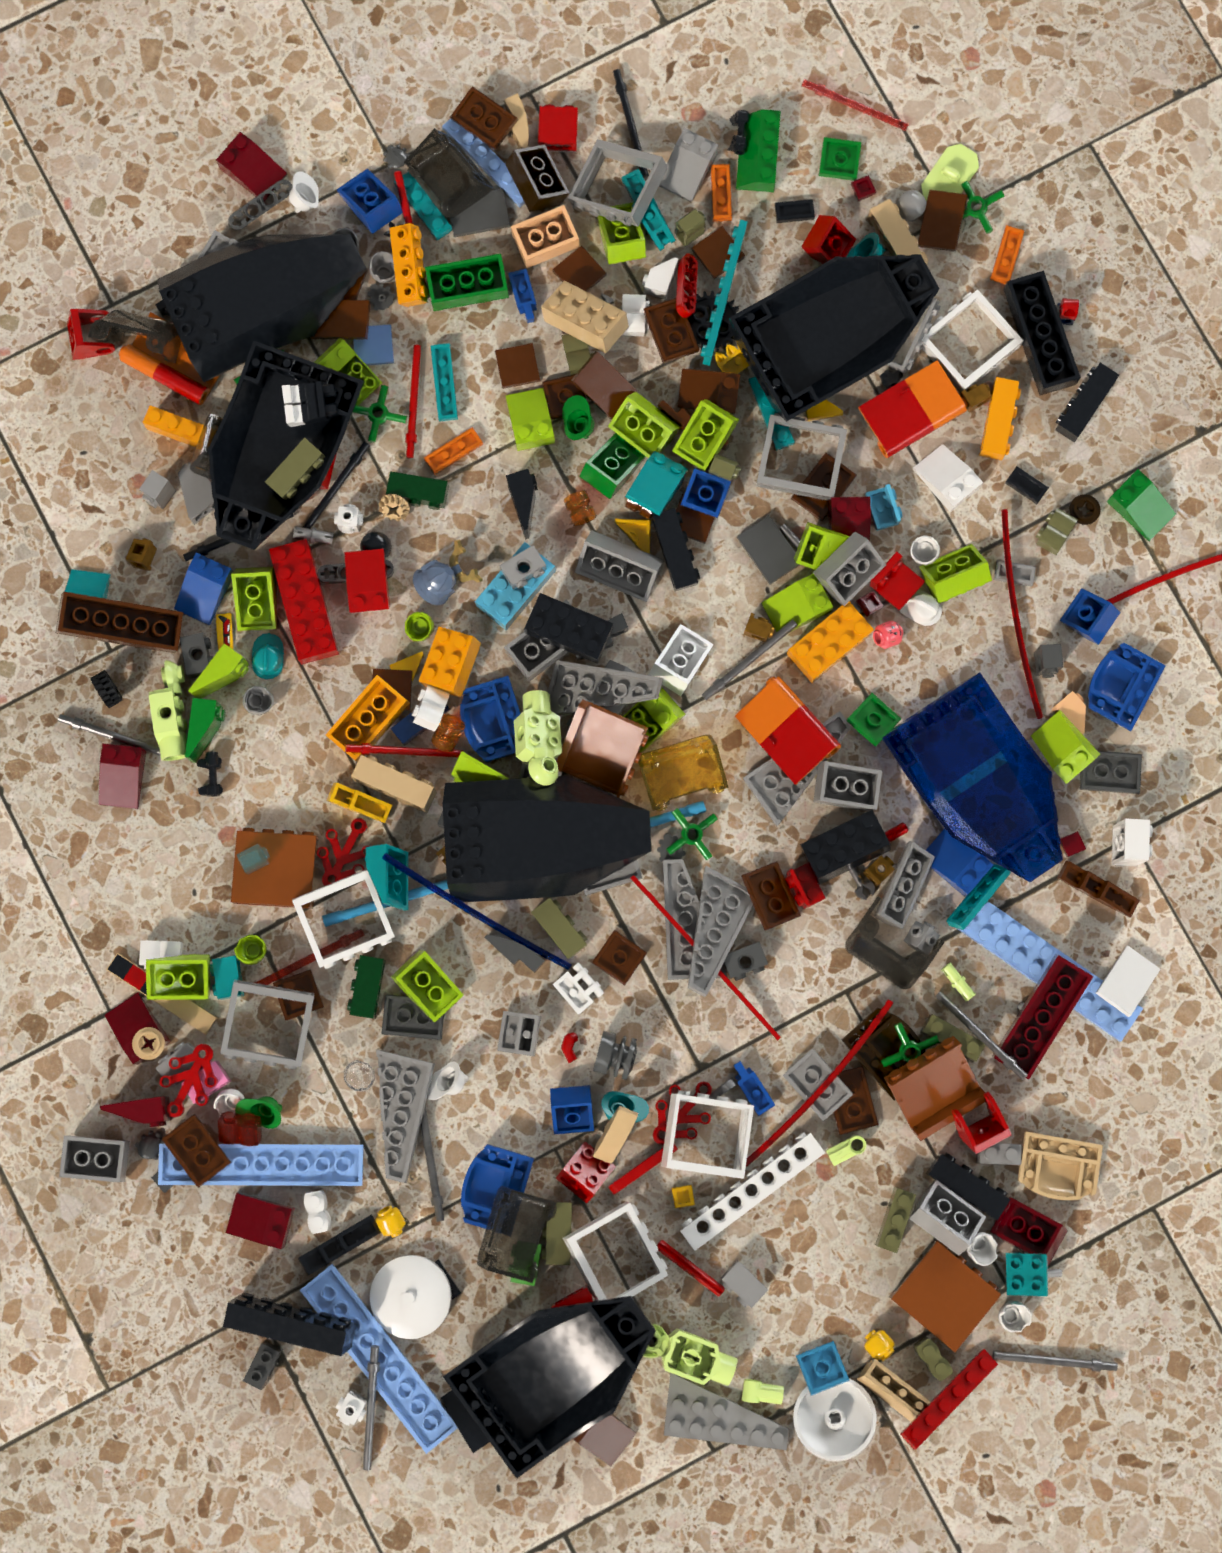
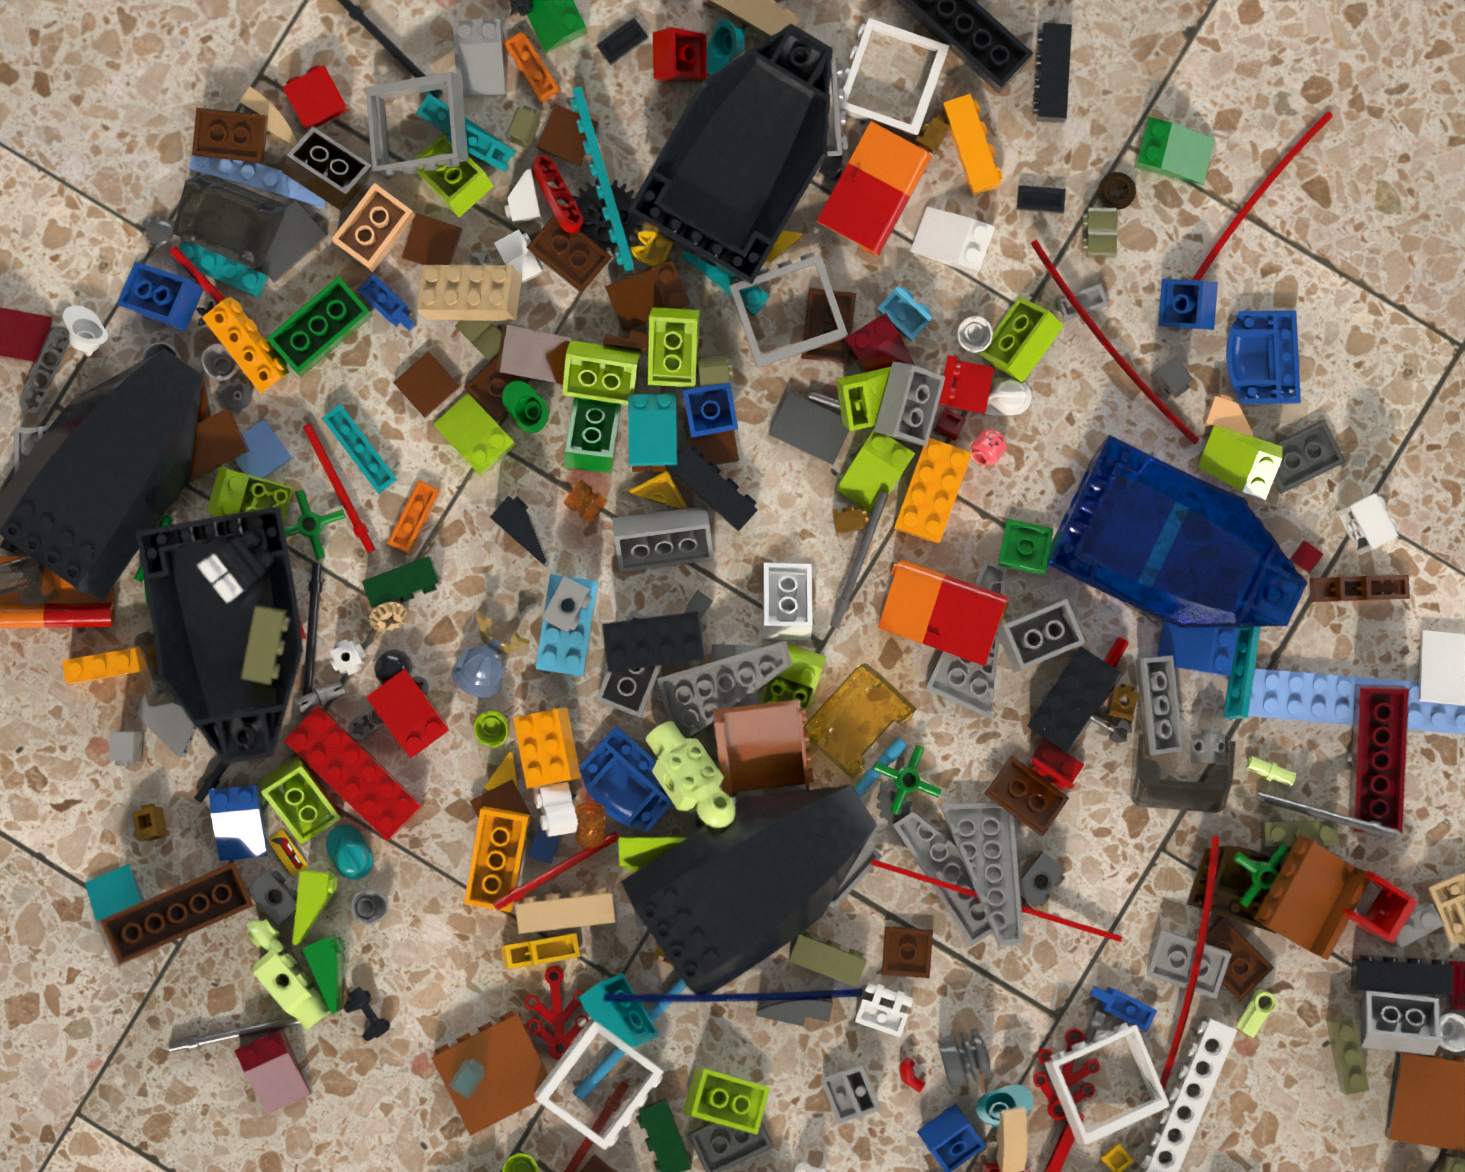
camera: 25 degrees left, 5 degrees up
(106, 689) = (202, 989): black tyre -> none

